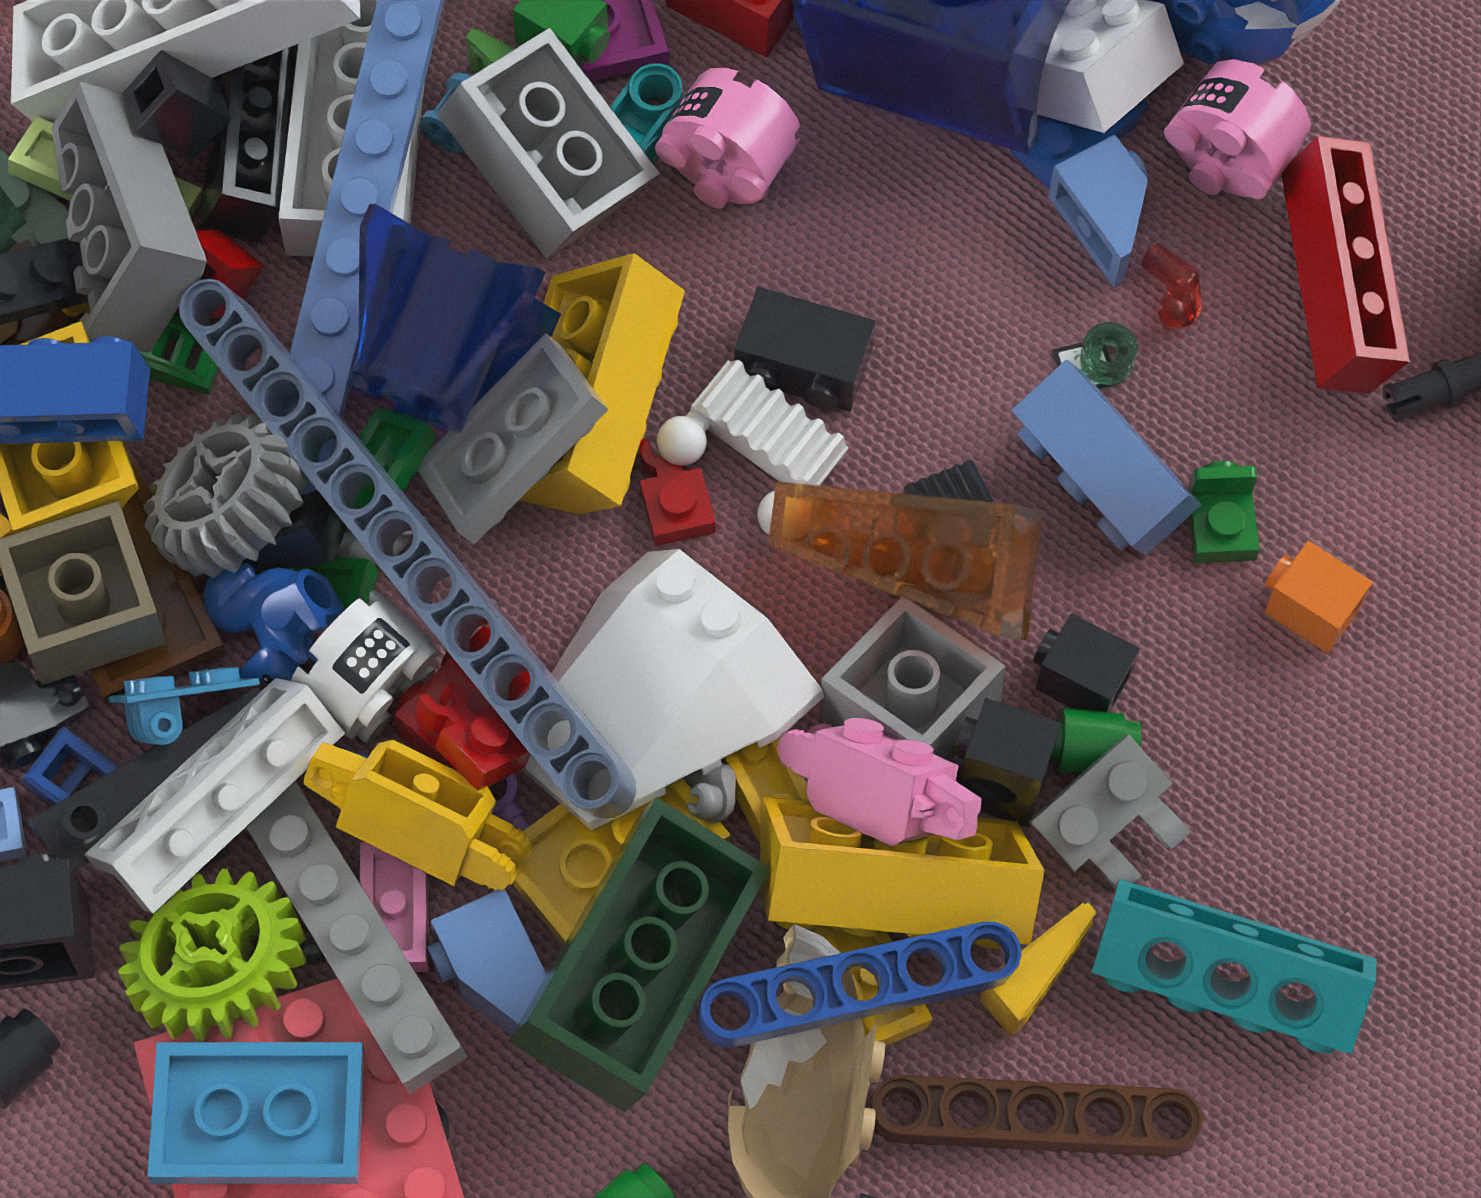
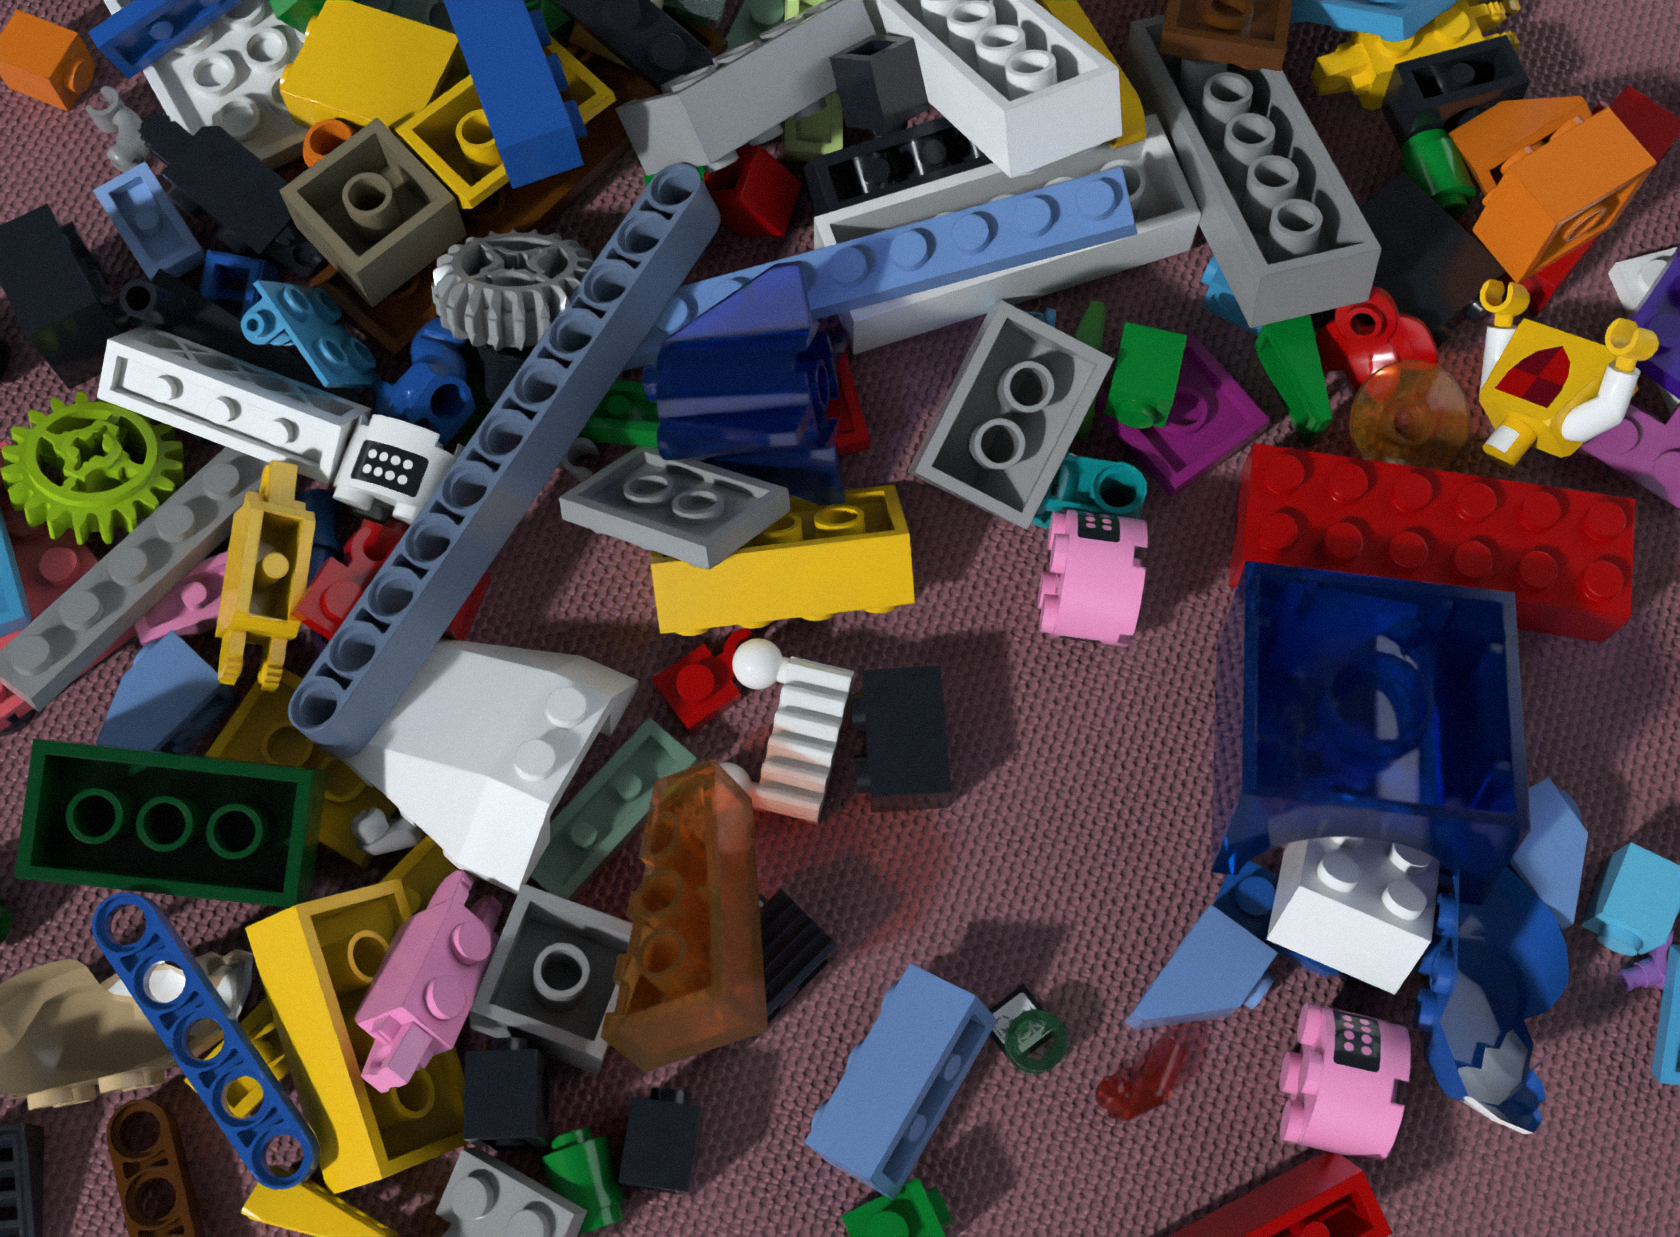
camera: 70 degrees right, 5 degrees up
(747, 568) = (608, 811): none -> sand green plate

